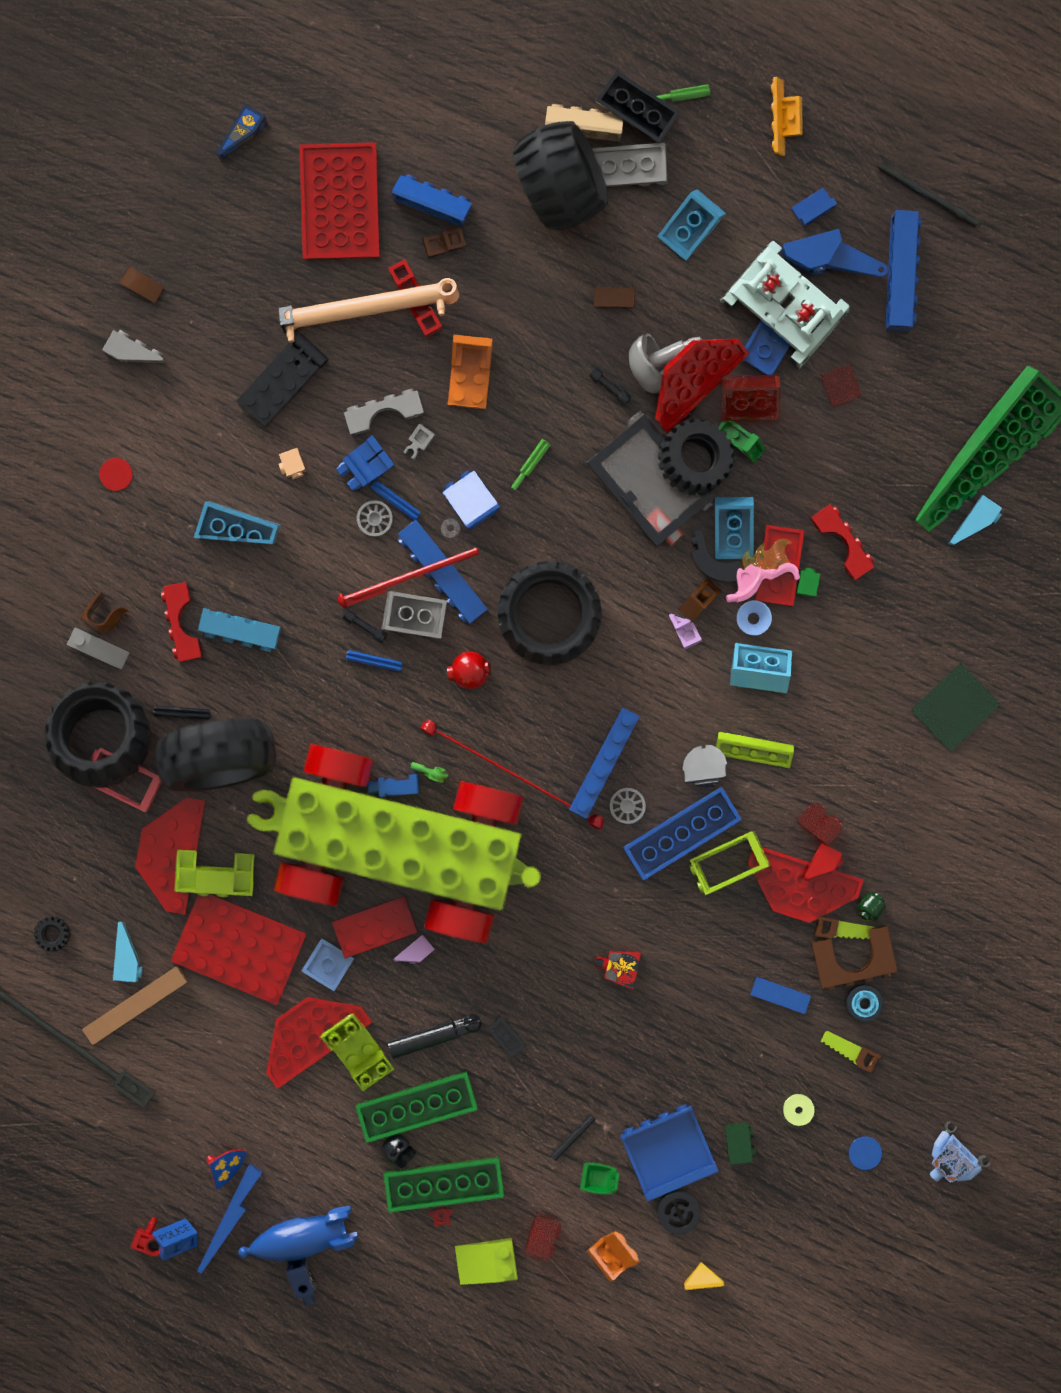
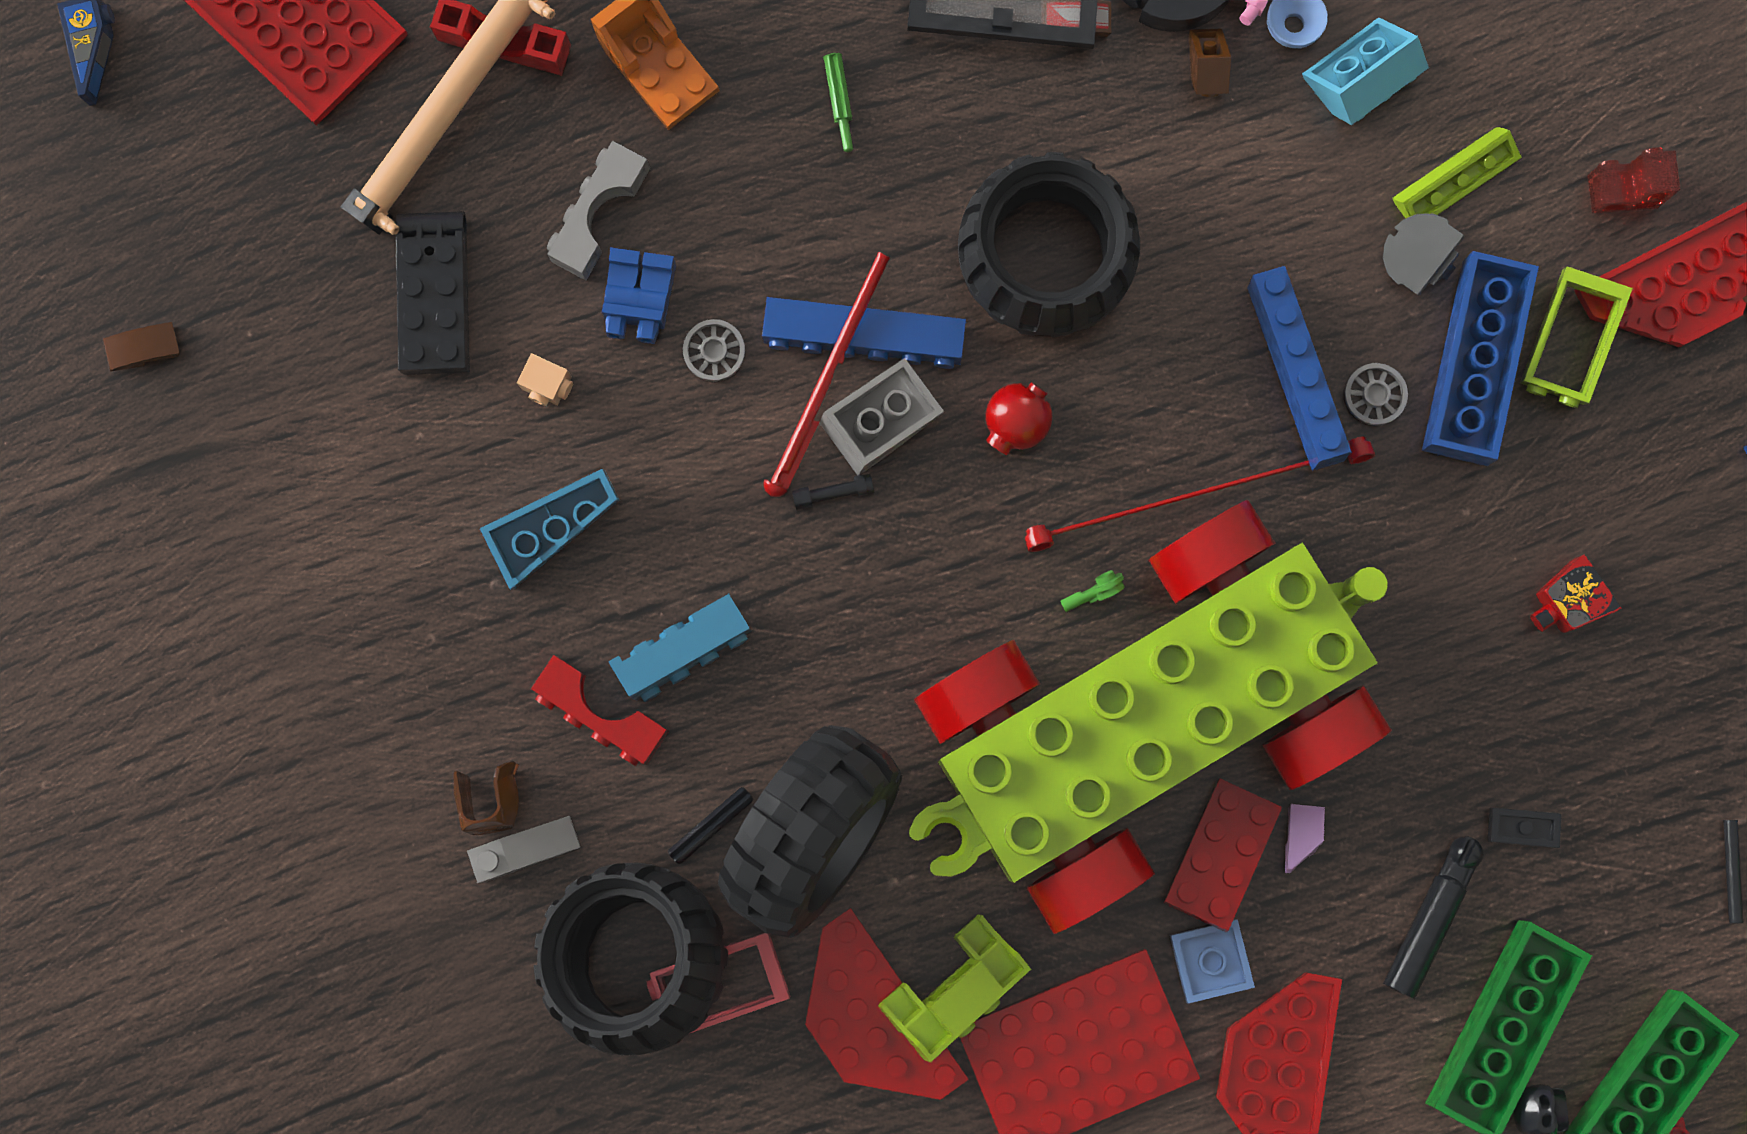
camera: 40 degrees left, 5 degrees down
(115, 474) = (335, 610): red piece -> none
(126, 350) = (200, 442): light grey slope -> none
(358, 1051) = (1367, 1035): lime slope -> none
(374, 661) = (887, 524): blue axle -> none
(395, 500) = (717, 303): blue axle -> none
(395, 787) = (1073, 651): blue hips -> none
(421, 439) = (673, 198): light grey plate -> none
(445, 532) = (819, 261): clear plate -> none
(470, 500) = (812, 209): slope -> none
(686, 631) = (1229, 117): lavender slope -> none
(824, 862) = (1685, 223): red slope -> none

